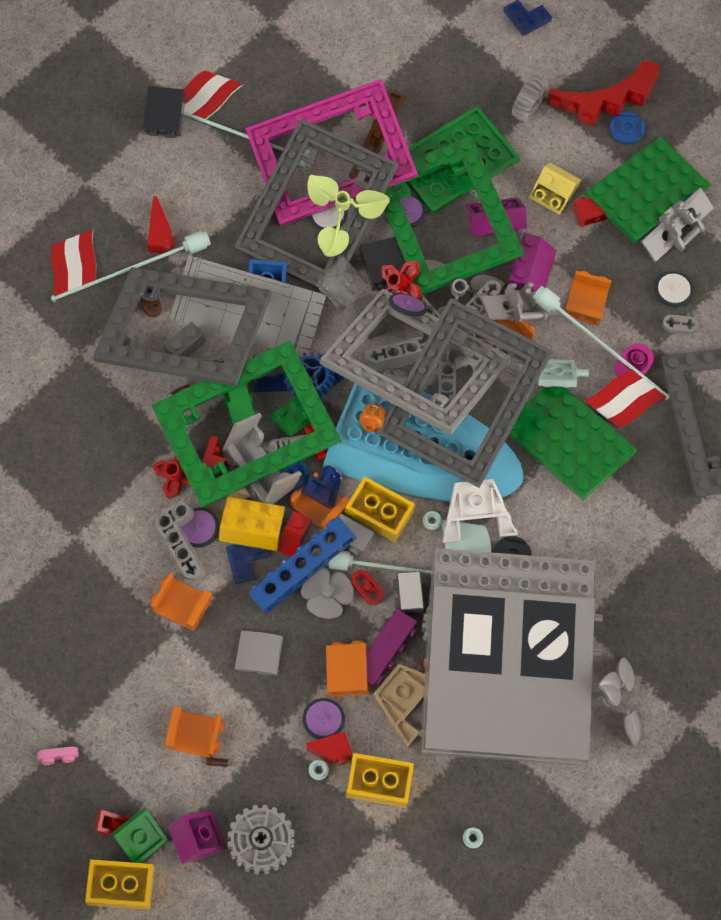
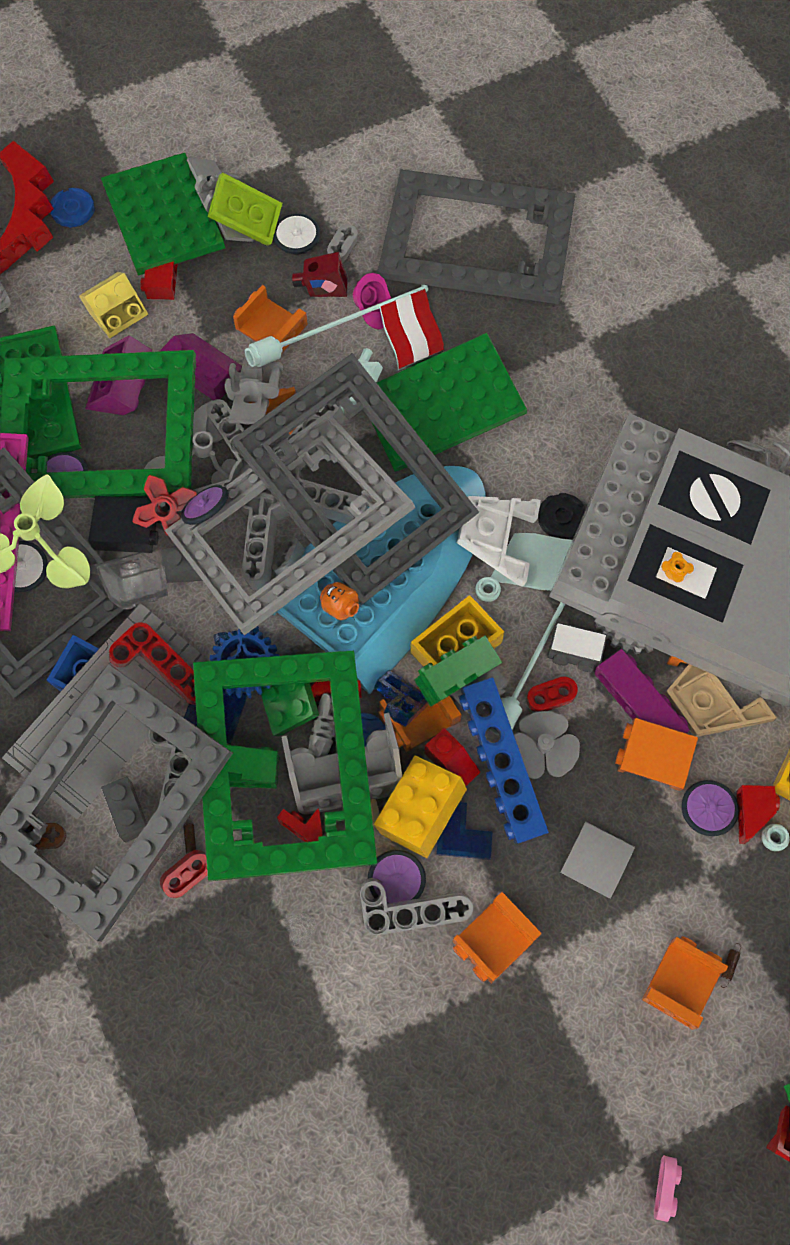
camera: 65 degrees left, 0 degrees up
(157, 394) = (186, 874): none -> red plate
(174, 474) = (321, 893): red plant -> none
(293, 311) = (162, 667): none -> red beam
(351, 509) = (457, 669): none -> green wedge
(477, 630) = (672, 572): none -> light orange plate
(639, 320) = (323, 276): none -> dark red torso
(670, 244) = (244, 209): none -> lime plate

